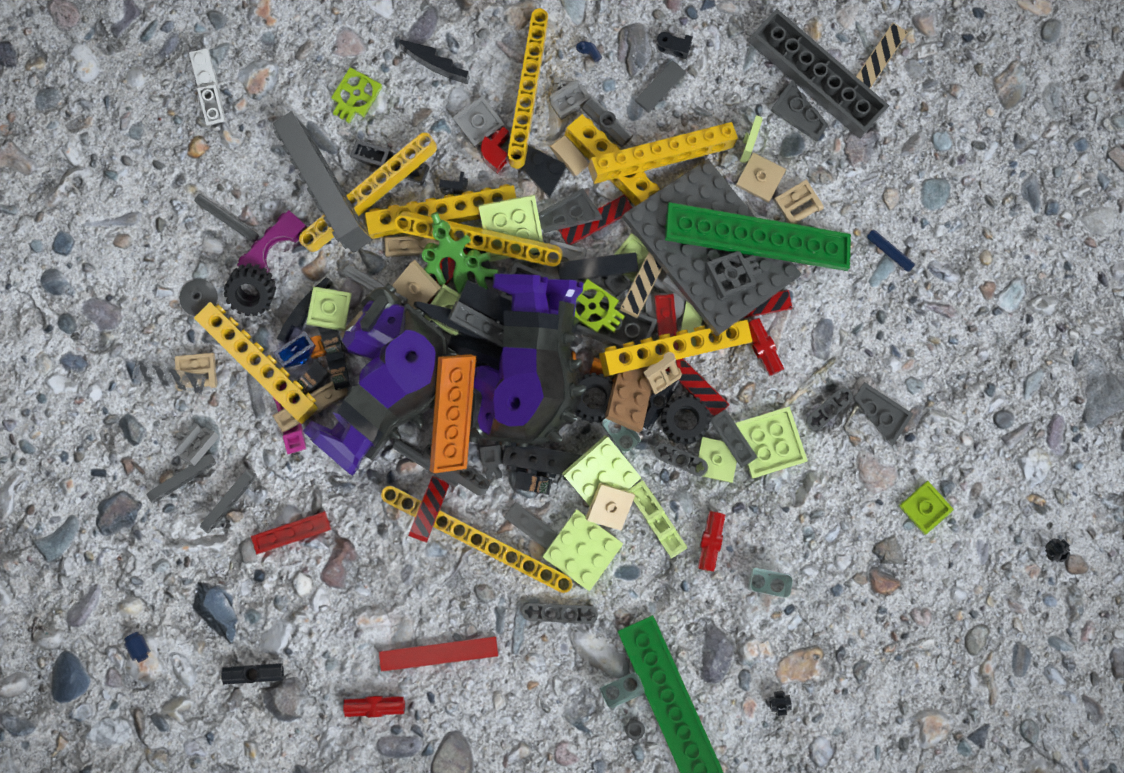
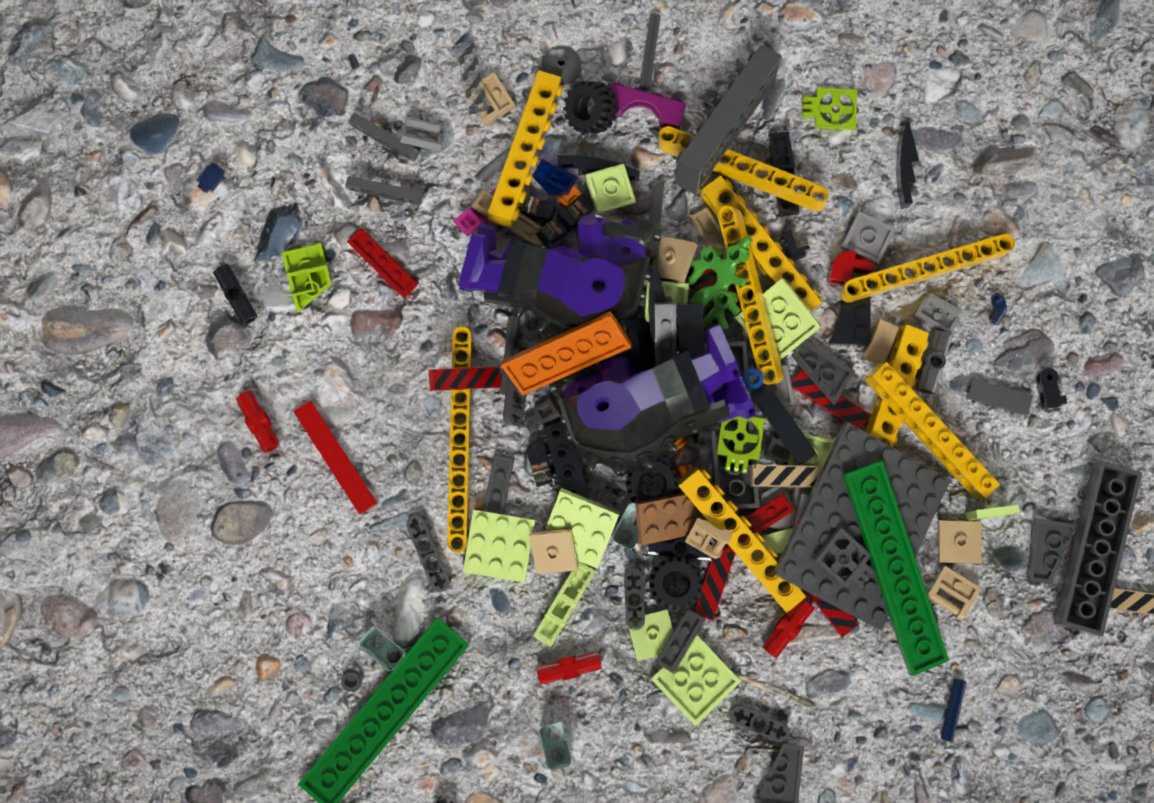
camera: 65 degrees right, 0 degrees up
(266, 603) = (306, 273): none -> lime slope
(552, 266) = (752, 372): none -> blue plate

